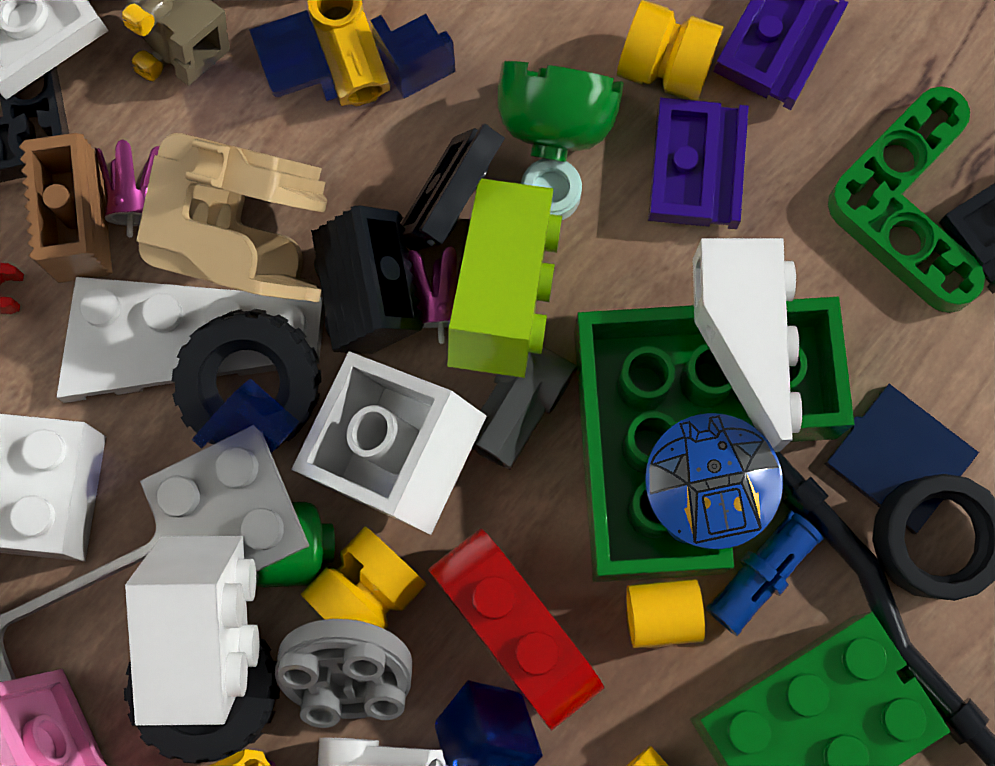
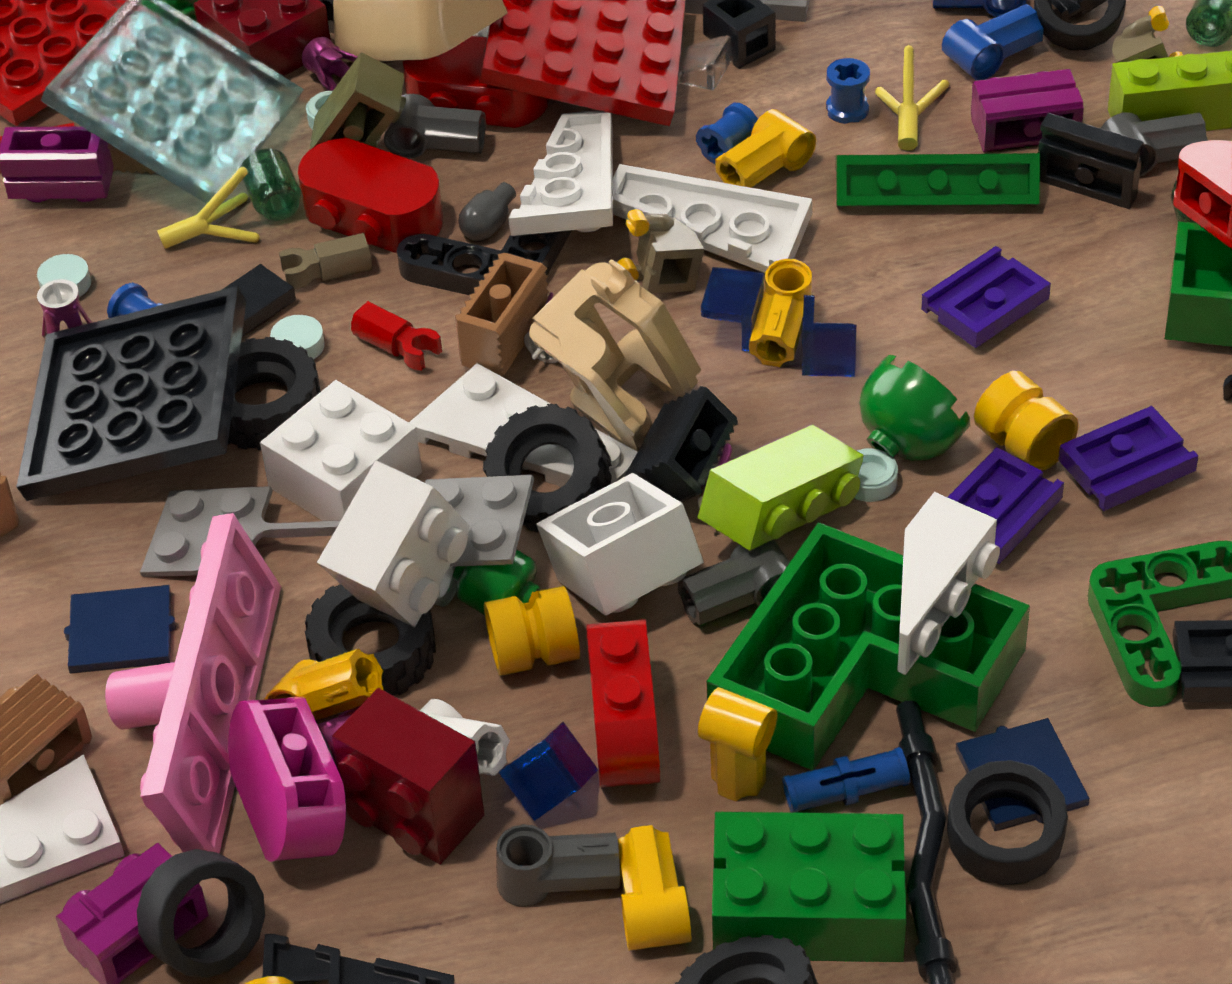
camera: 35 degrees right, 30 degrees down
(245, 408) = (526, 456): clear blue panel -> none
(344, 671) = (478, 661): light grey tile -> none
(450, 187) = (815, 408): black plate -> none
(713, 481) = (837, 660): blue dish -> none

